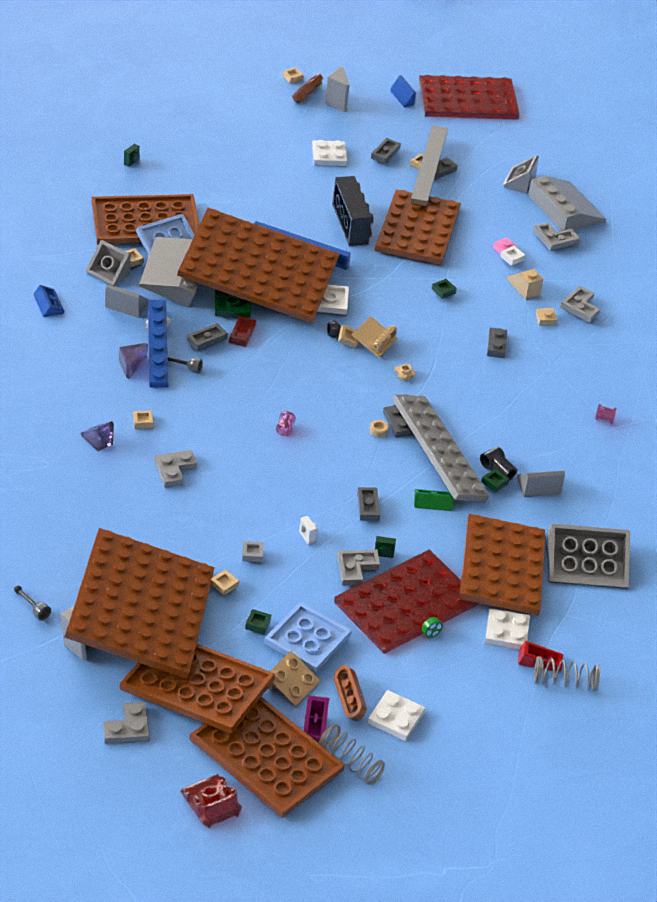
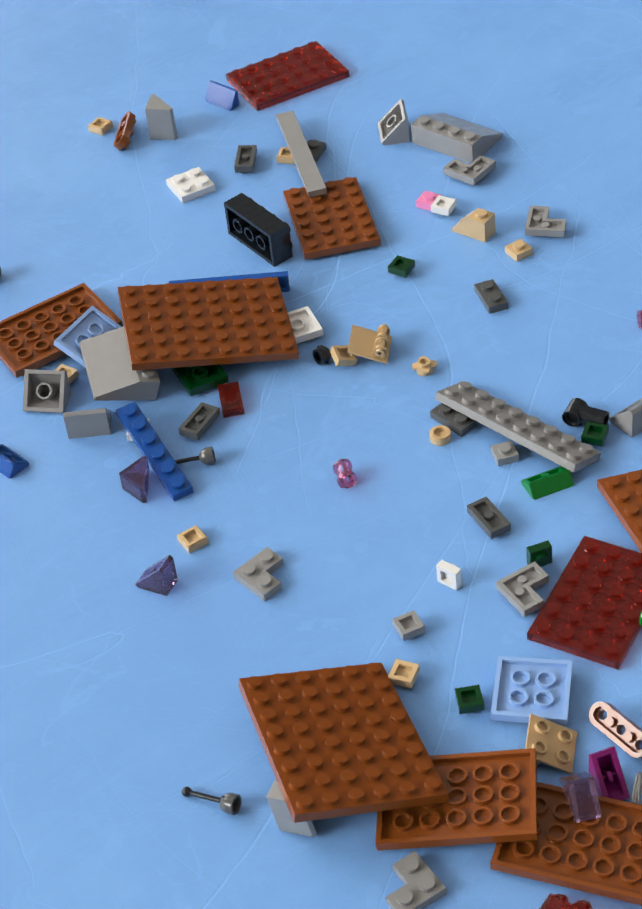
camera: 15 degrees left, 0 degrees up
(284, 721) = (581, 796): none -> clear purple slope
(417, 463) = (504, 453): none -> light grey plate

